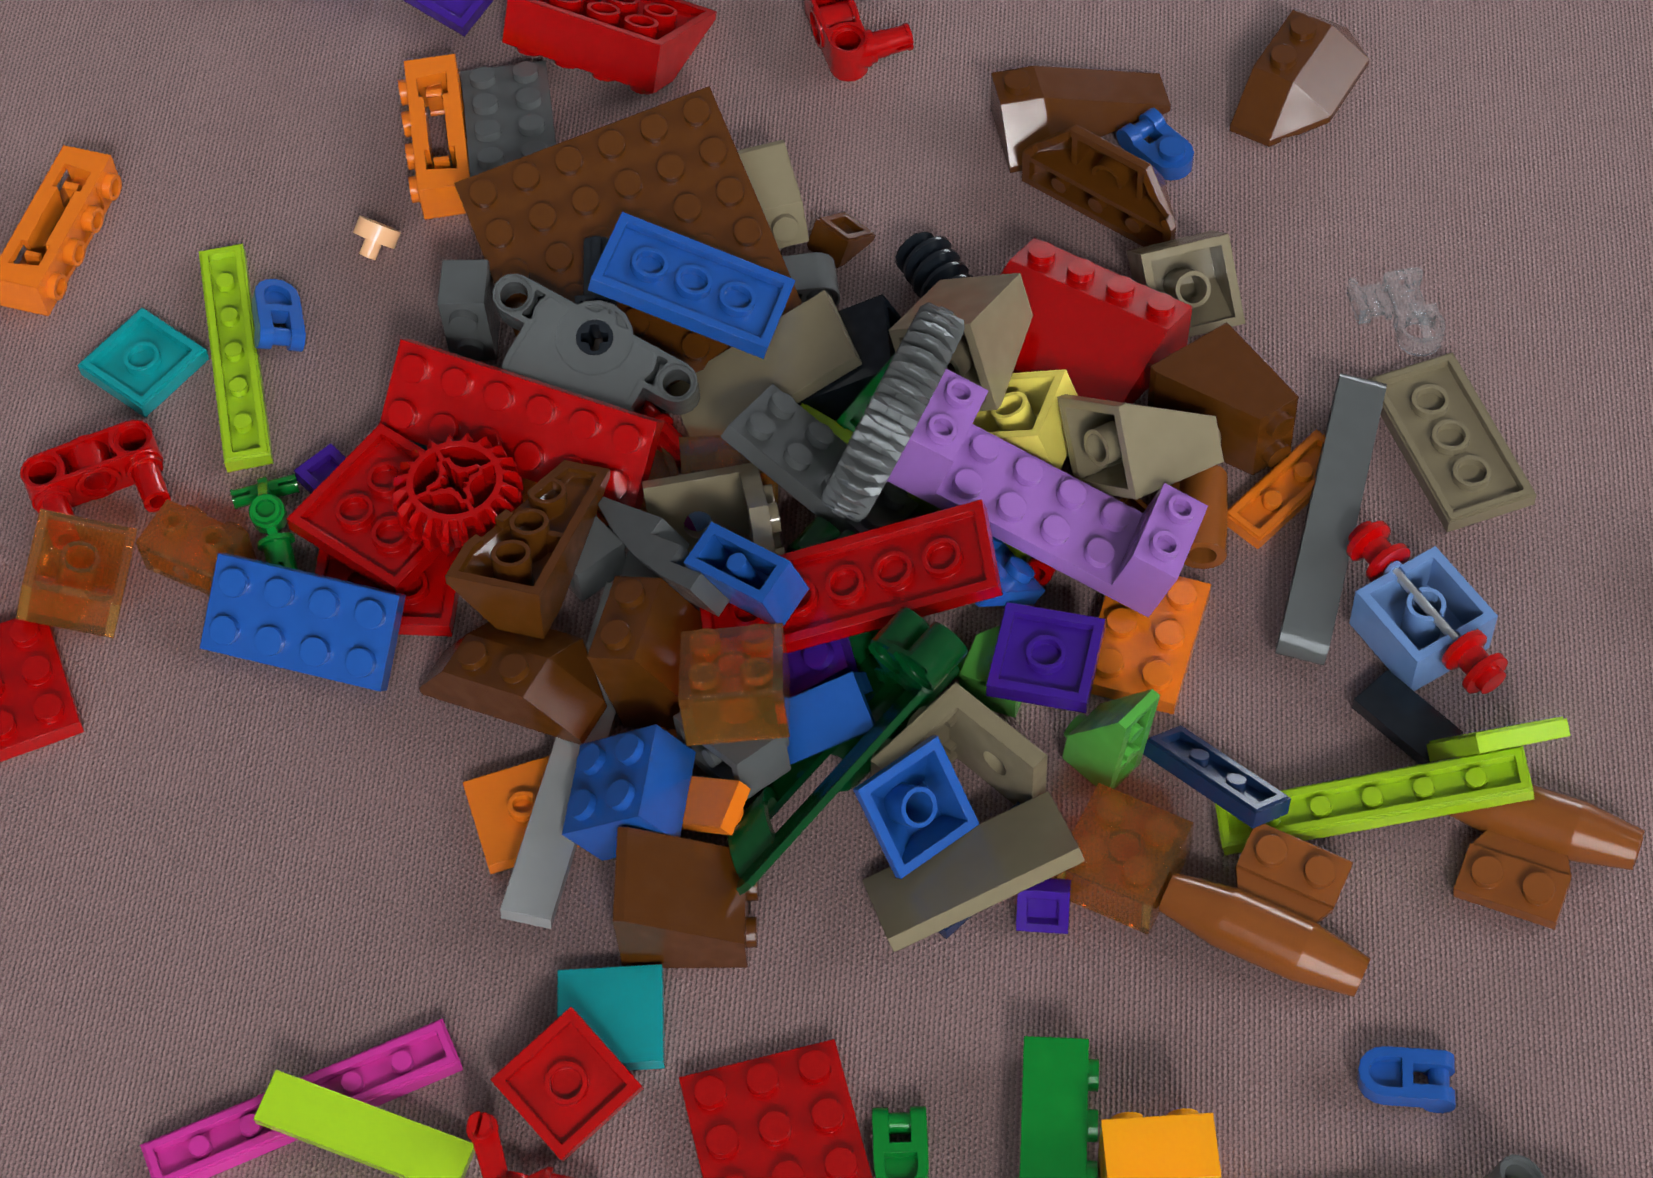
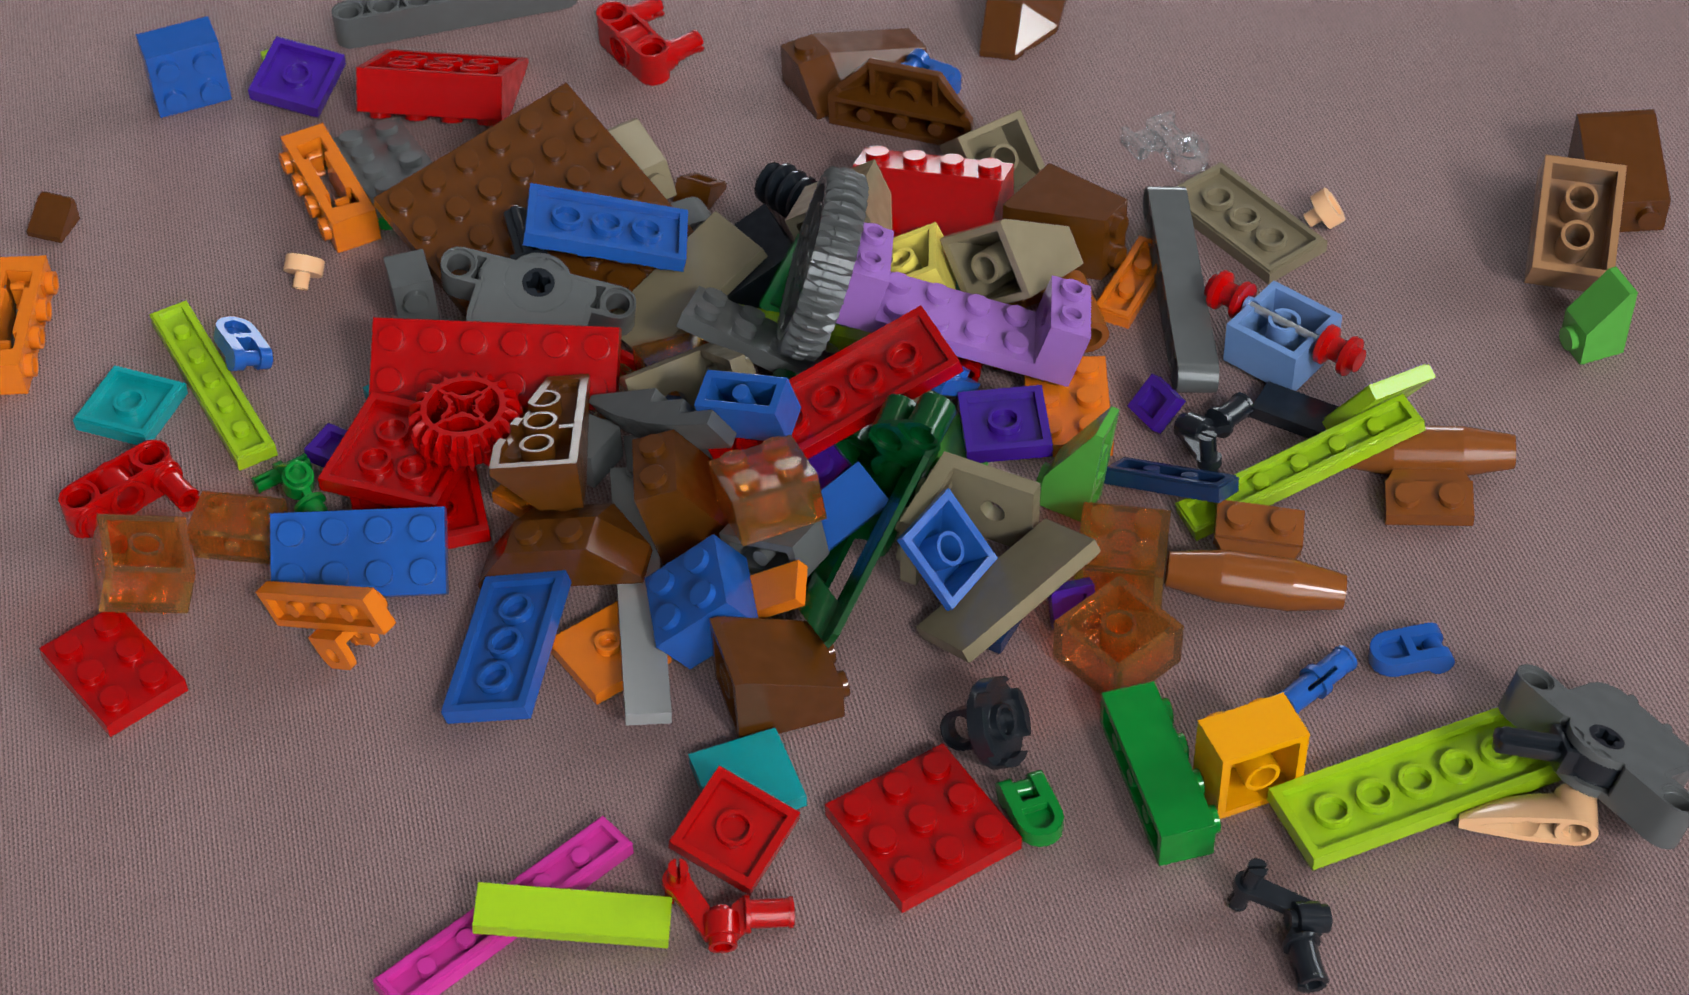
camera: 20 degrees left, 10 degrees down
(143, 101) = (53, 217): none -> reddish brown slope
(246, 696) = (335, 613): none -> orange plate
(415, 781) = (507, 647): none -> blue plate
(891, 1037) = (995, 723): none -> black tile
(1072, 970) = (1117, 638): none -> clear orange brick
(1243, 665) = (1156, 403): none -> dark purple plate
(1280, 714) = (1200, 431): none -> black pin
(1283, 1084) = (1331, 667): none -> blue pin
(1550, 452) = (1325, 209): none -> light nougat tile

